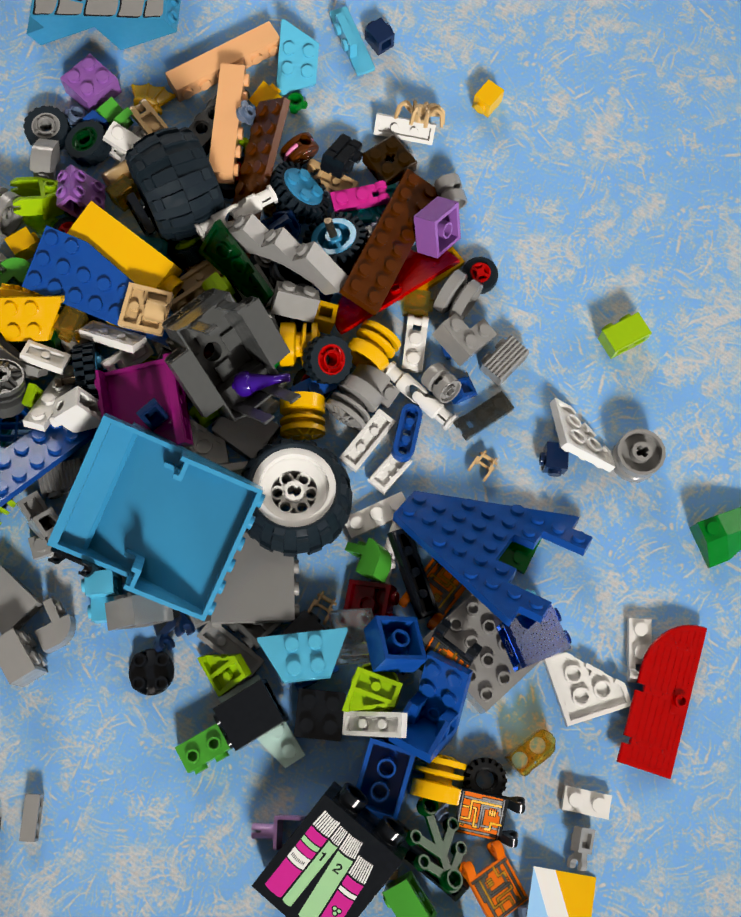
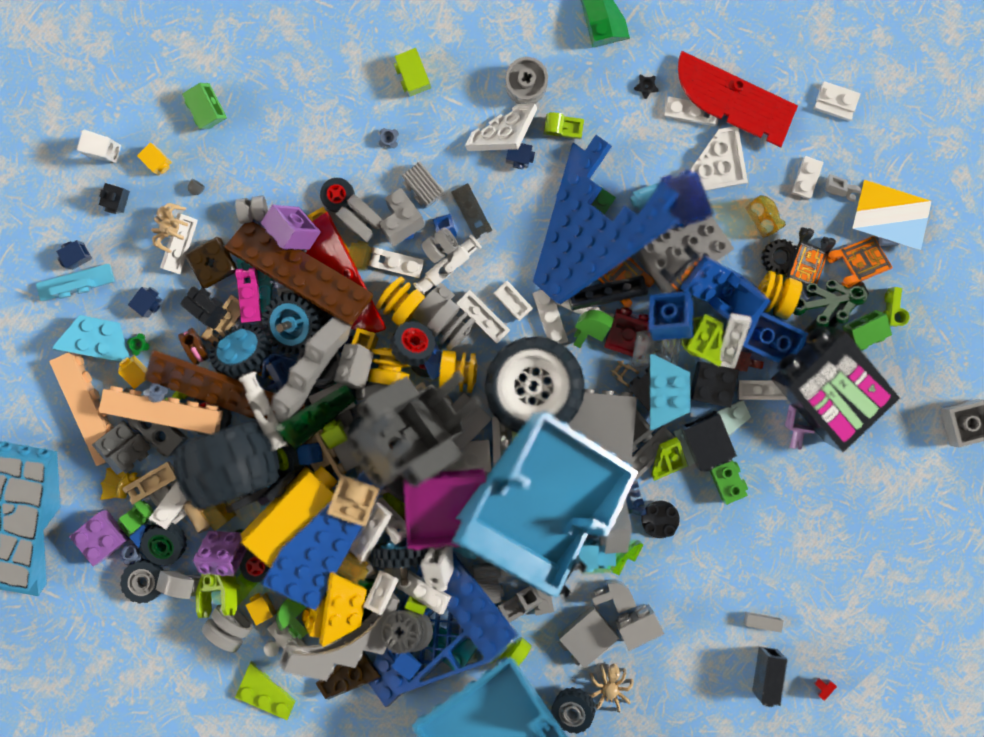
camera: 80 degrees left, 15 degrees up
(106, 638) = (632, 554): none -> clear neon green slope
(153, 238) = (276, 489): none -> black plate
(153, 414) = (456, 500): dark blue slope -> none
(186, 93) = (121, 448): none -> dark grey plate
(195, 269) = (310, 453): none -> blue slope
(247, 383) = (432, 414): dark purple piece -> none
(318, 772) = (758, 390): none -> white plate
(340, 104) = (146, 301): none -> dark blue brick
(352, 748) = (744, 362): none -> clear red plate
(409, 426) = (474, 278): blue plate -> none
(441, 65) = (113, 198): none -> black brick
(465, 139) = (195, 187): none -> dark grey hinge
(477, 460) = (520, 213): tan piece -> none
(492, 44) = (98, 147): none -> white piece
(549, 315) = (388, 133): none -> sand blue plate
(550, 137) = (204, 106): none -> bright green brick
(595, 503) = (562, 126): none -> lime plate
(664, 594) = (650, 81): none -> black plate
(684, 828) = (836, 101): none -> white plate

